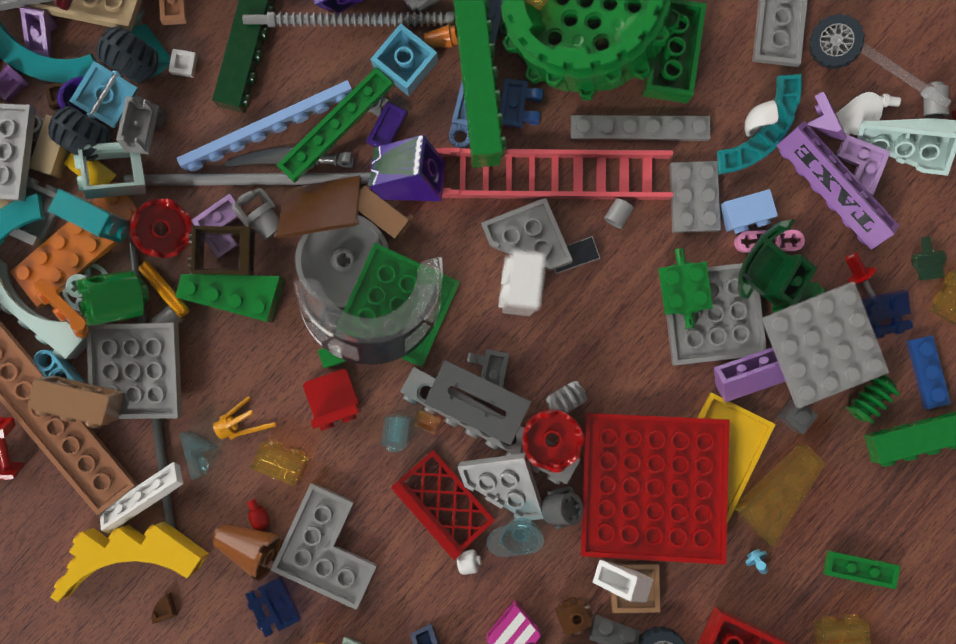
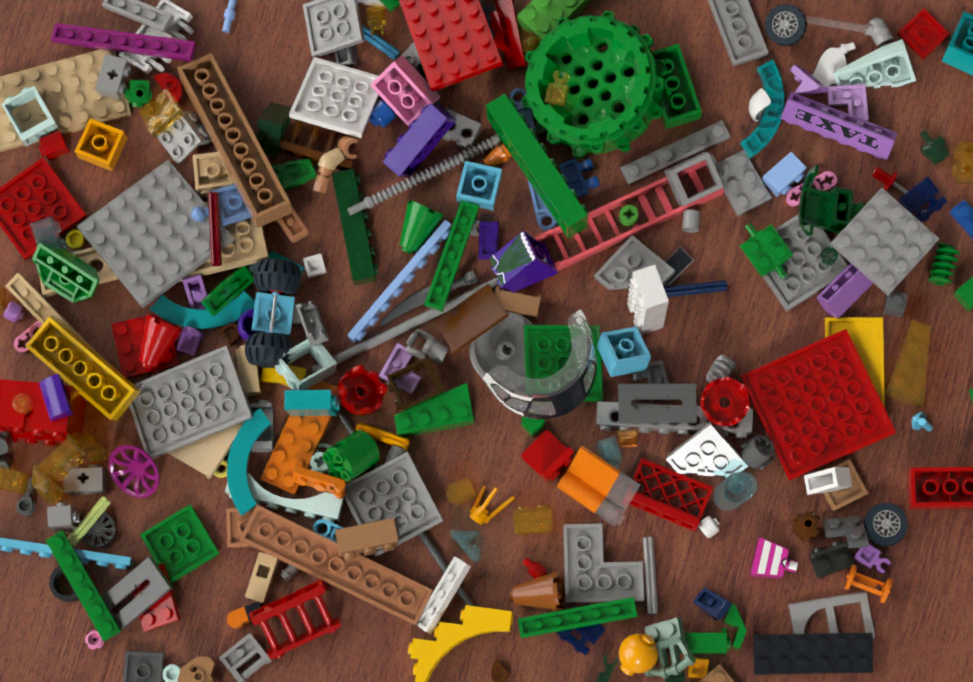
camera: 20 degrees left, 10 degrees down
(67, 44) = (227, 290): none -> green plate
(218, 392) = (460, 492): none -> clear yellow brick
(271, 596) = (577, 617): none -> green plate
(315, 72) = (417, 226): none -> green cone
(366, 464) = (598, 486): none -> orange door
(378, 583) = (650, 575): none -> light grey axle
(469, 325) = (623, 351): none -> medium azure brick
(550, 178) = (626, 218): none -> bright green wheel
(582, 289) = (696, 288): none -> dark blue axle
(622, 167) = (677, 187): none -> light grey window
(750, 335) = (827, 250): none -> clear green bush

